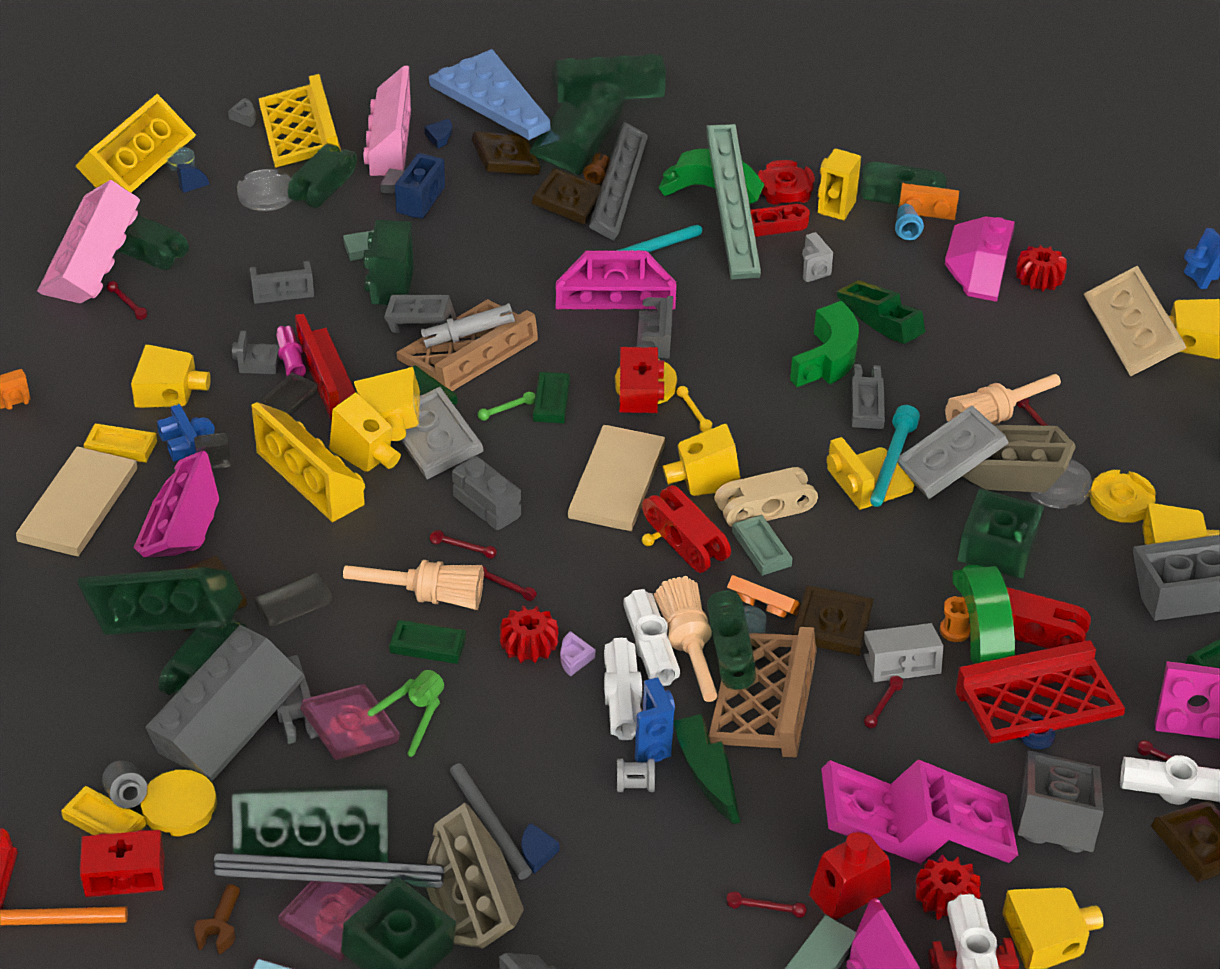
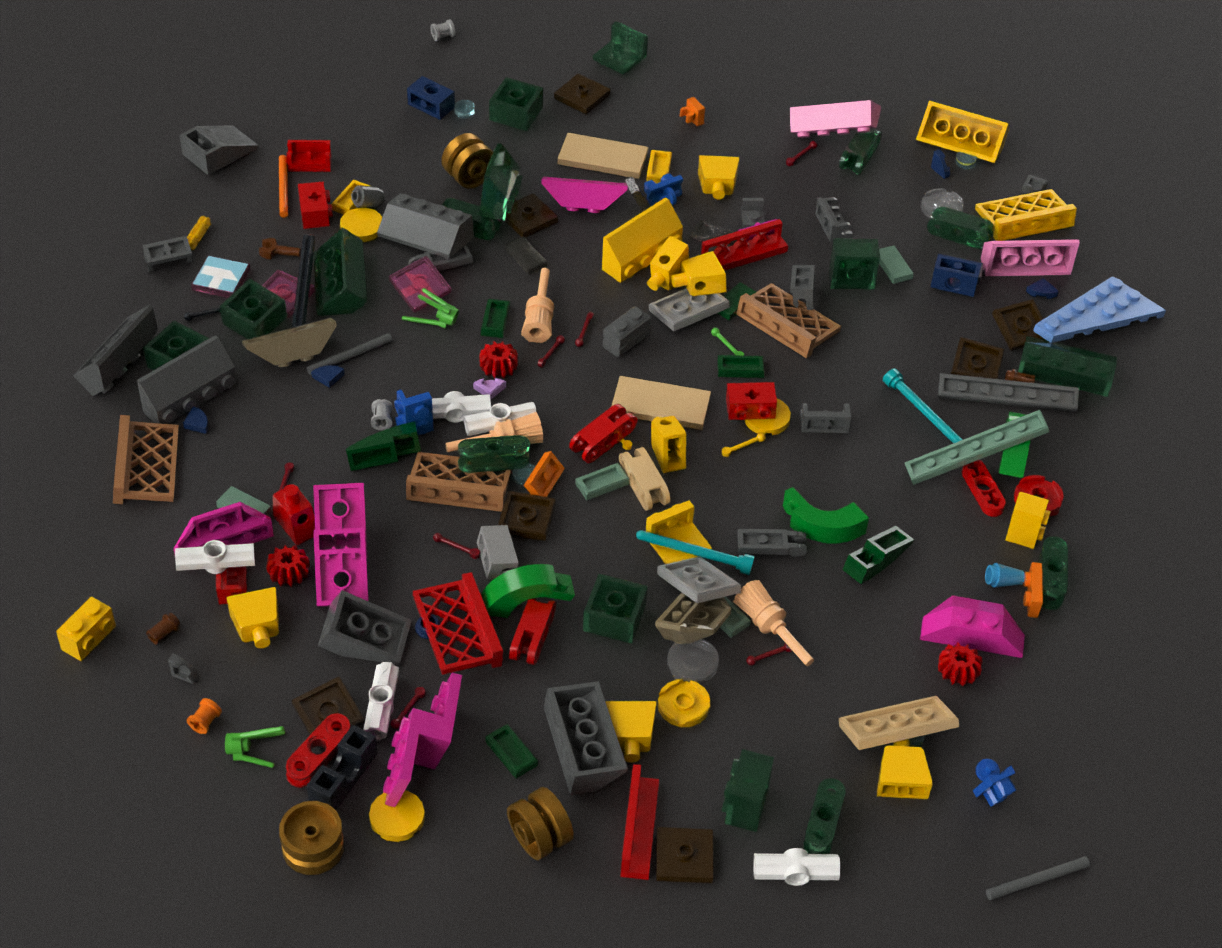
camera: 85 degrees right, 5 degrees up
(79, 639) = (467, 160): none -> pearl gold wheel
(467, 325) = (788, 303): light grey pin -> none
(613, 281) = (867, 389): dark pink wedge -> none
(637, 75) = (1149, 382): clear green slope -> none
(817, 258) = (936, 514): light grey bracket -> none

